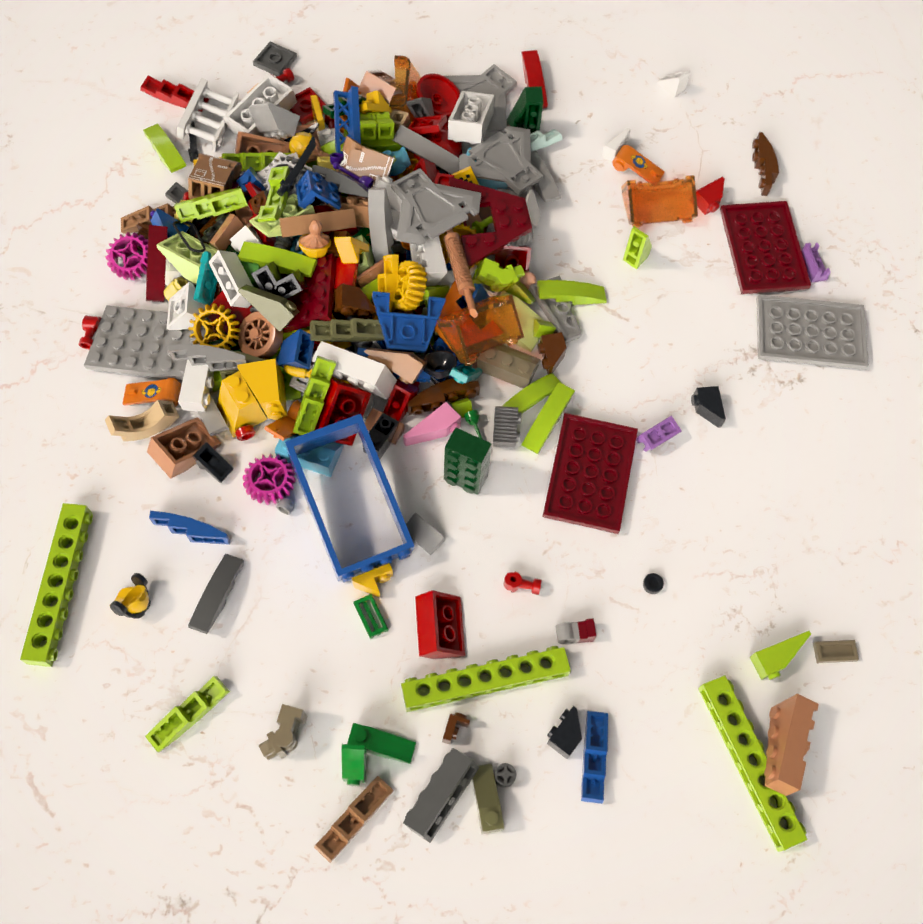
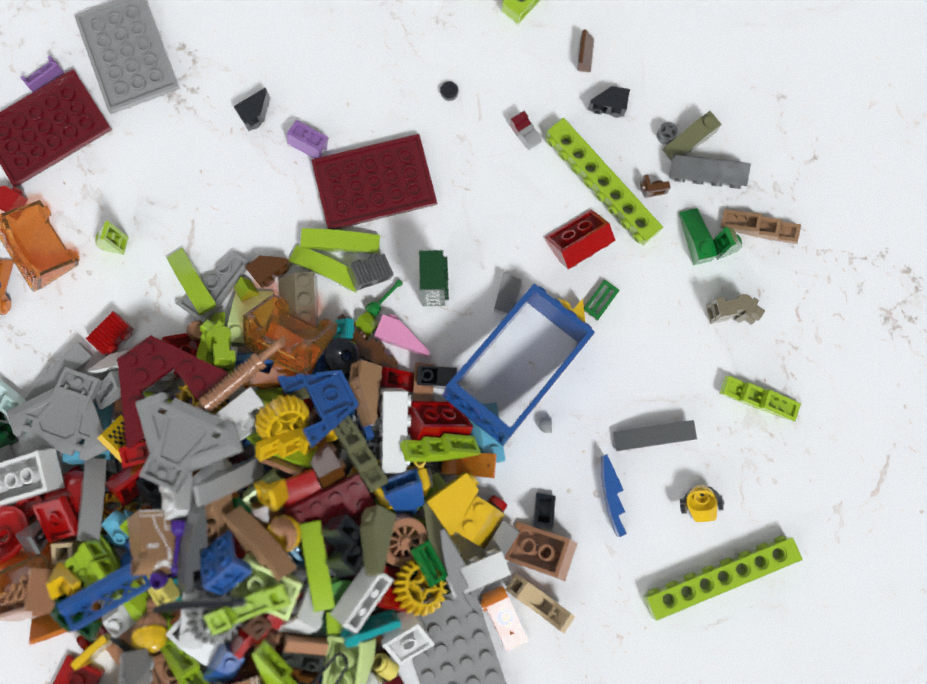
camera: 115 degrees left, 15 degrees up
(243, 341) = (426, 565): none -> green tile
(258, 488) = (522, 449): dark pink gear -> none
(514, 581) = (509, 196): red leg -> none
(557, 222) = (110, 334): none -> red brick
(594, 757) = (615, 75): blue slope -> none
(635, 739) = (585, 52): none -> slope

